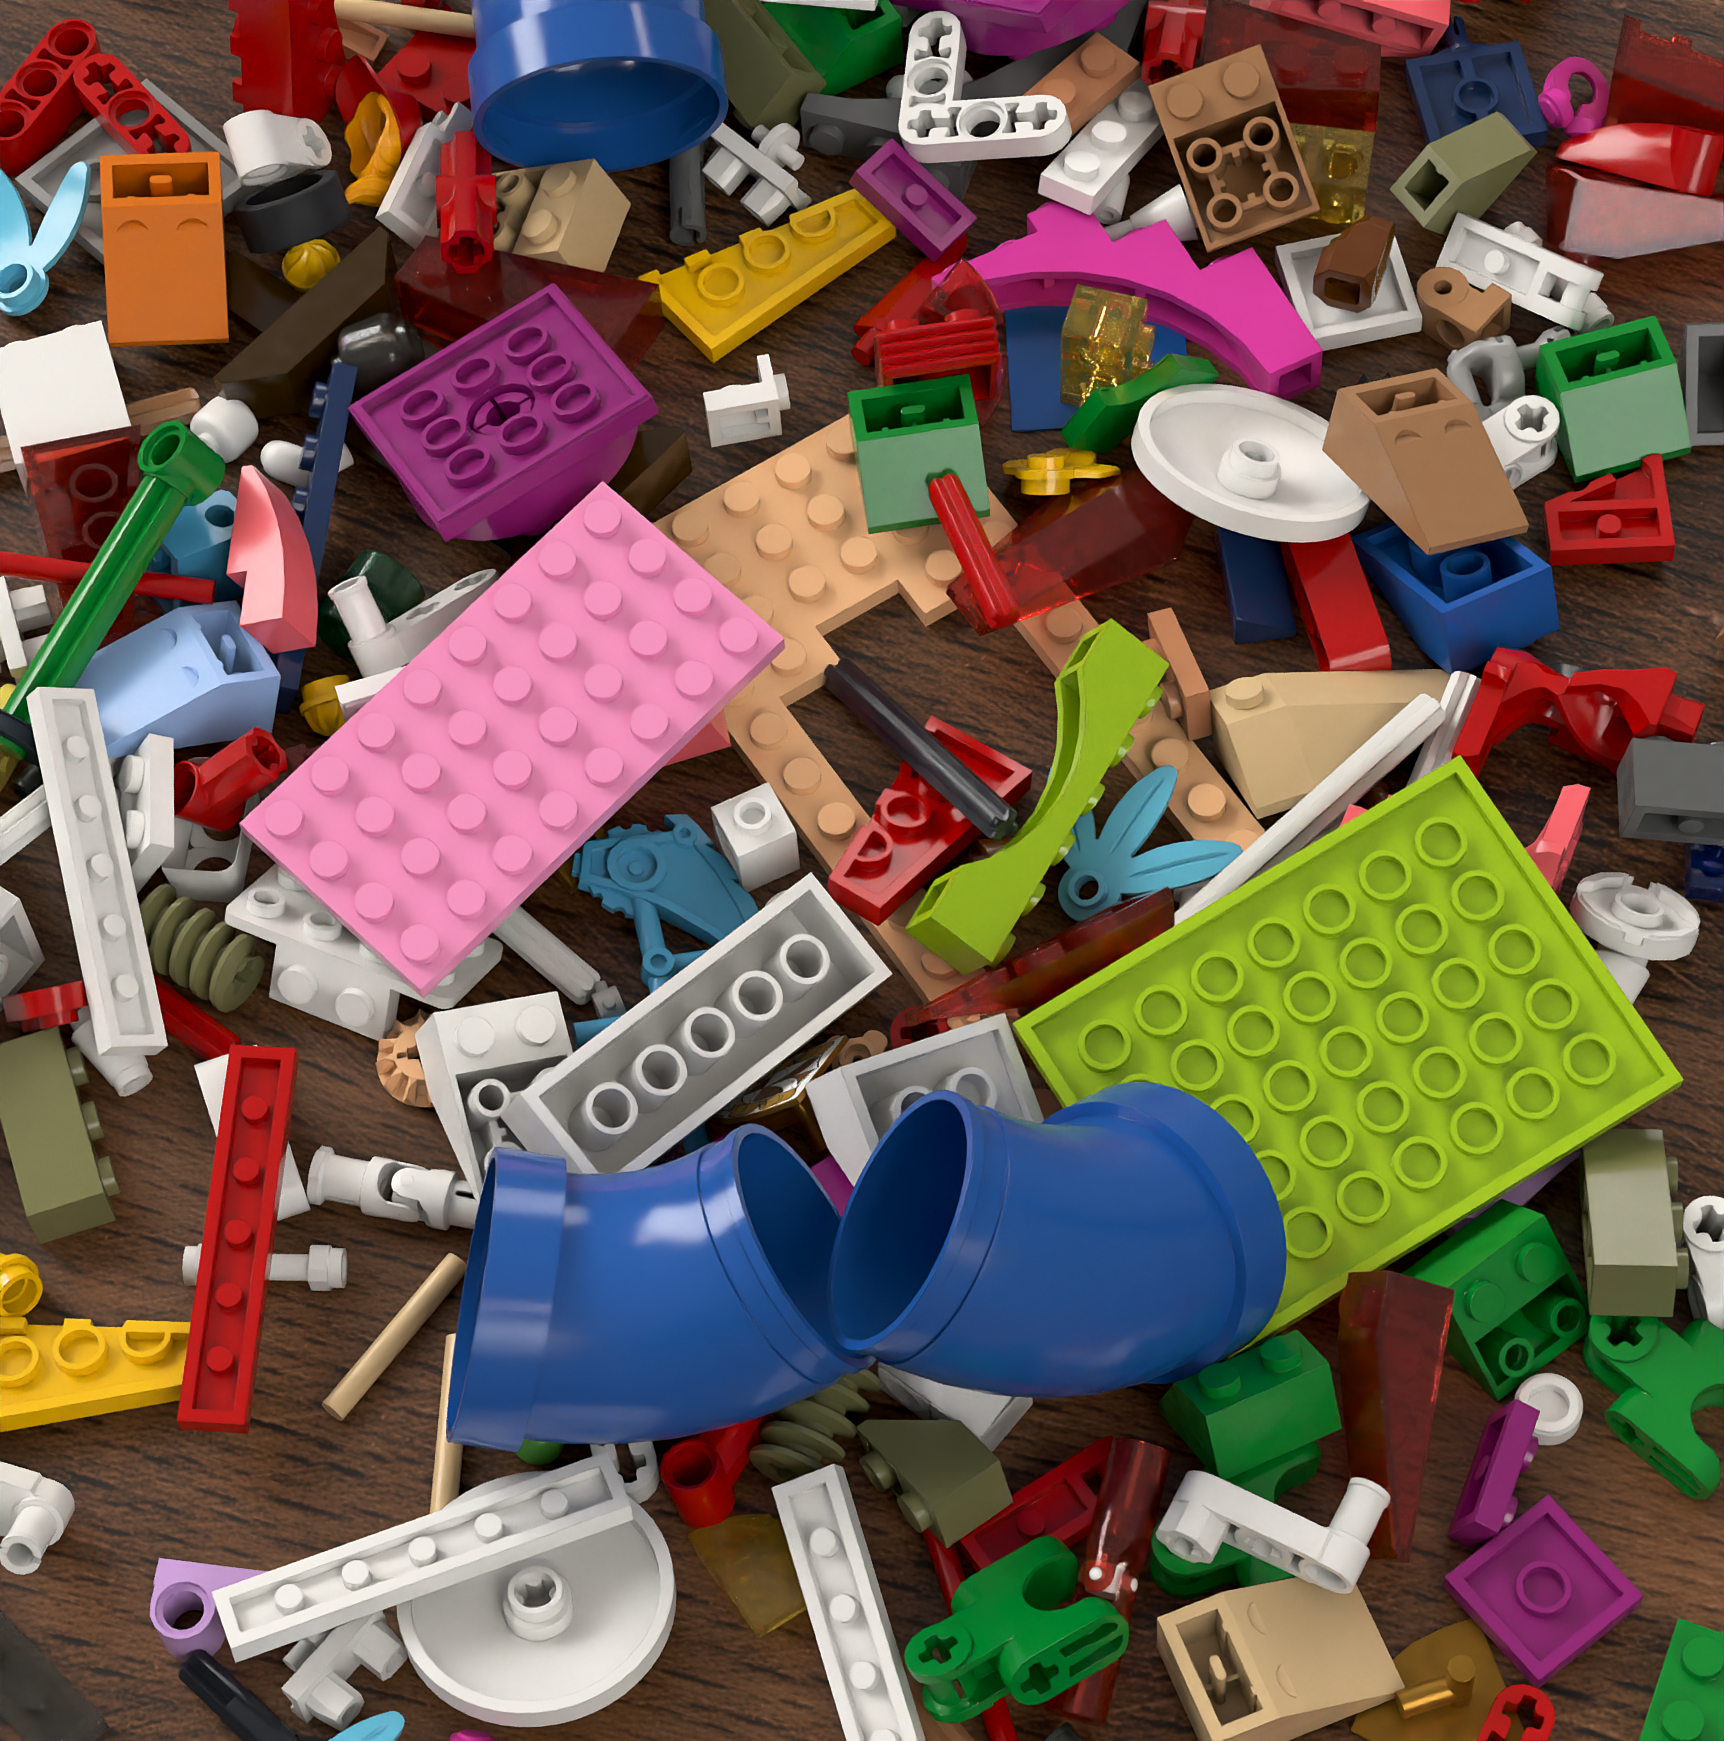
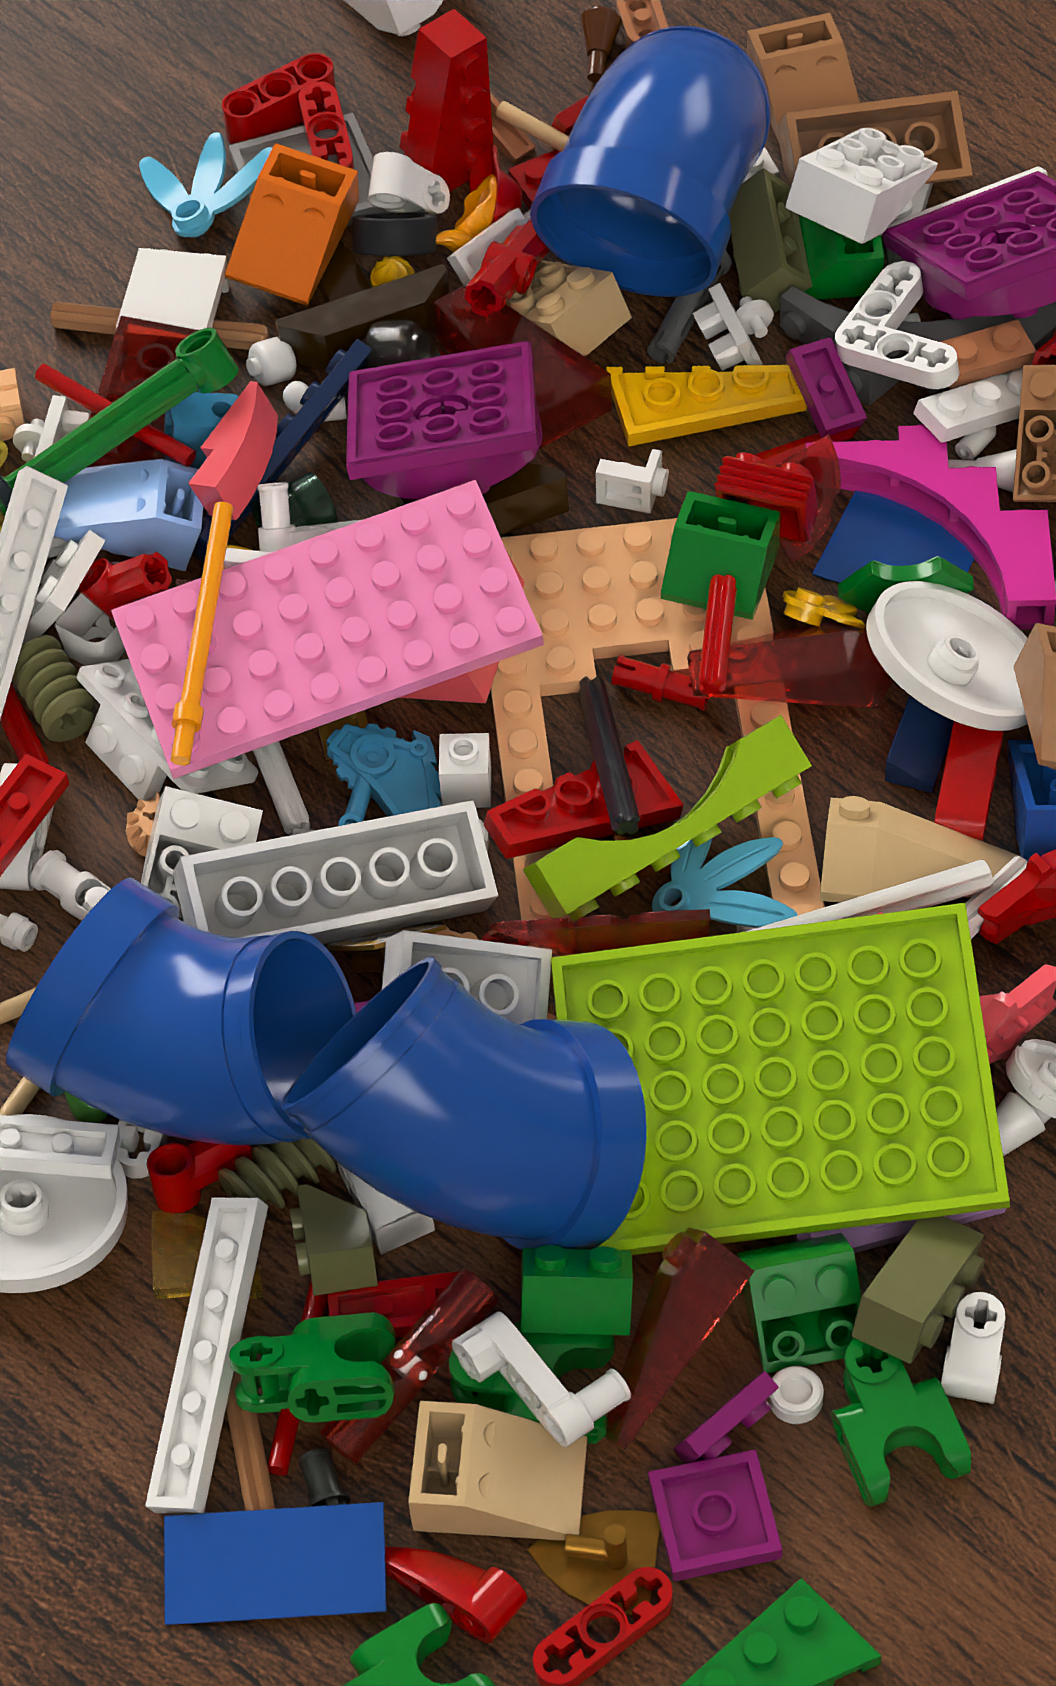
camera: 25 degrees right, 5 degrees down
(413, 911) = (188, 712): none -> light orange bar
(916, 635) = (656, 681): none -> red pin
(1103, 342) = (897, 528): clear yellow brick -> none
(1183, 685) = (824, 771): nougat plate -> none

